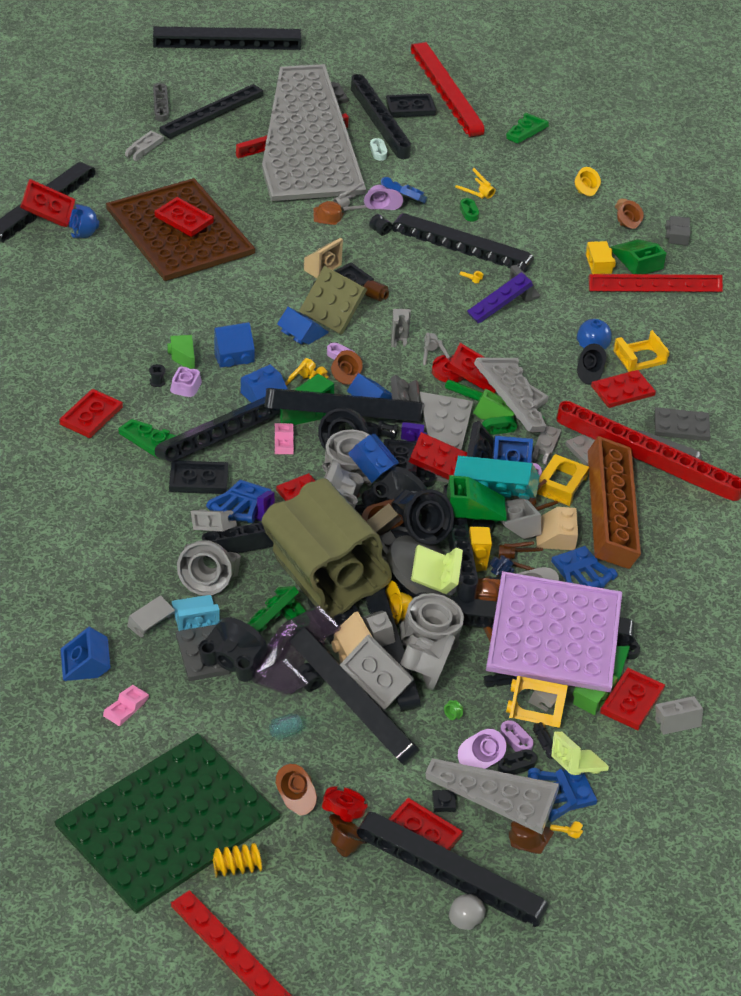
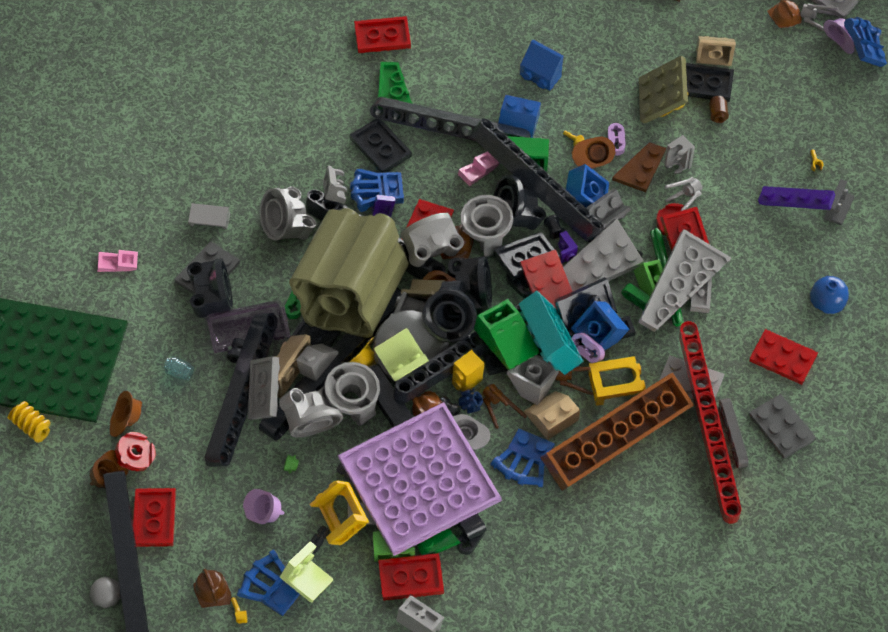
camera: 55 degrees right, 15 degrees up
(85, 656) = (138, 207): blue slope -> none
(157, 375) = (459, 44): black bush -> none
(182, 350) = (508, 38): bright green slope -> none
(186, 382) = (477, 65): lavender piece -> none
(195, 612) = (239, 239): medium azure bracket -> none
(284, 597) = (266, 283): green wing -> none
(300, 326) = (618, 92): blue slope -> none
(305, 369) = (567, 127): yellow plant -> none
(373, 457) = (486, 237): blue slope -> none
(380, 224) = (808, 56): black wheel -> none
(382, 357) = (641, 168): none -> reddish brown wing
(443, 801) = (197, 513): black plate -> none
(462, 241) = (851, 127): black beam -> none
(510, 795) = (227, 548): light grey wing -> none
(516, 737) = (296, 520): lavender beam -> none
(517, 763) = (272, 541): black beam -> none
(546, 443) = (653, 343): light grey hinge -> none
(591, 363) = (781, 314): black piece -> none
(628, 358) = (832, 324): yellow panel -> none

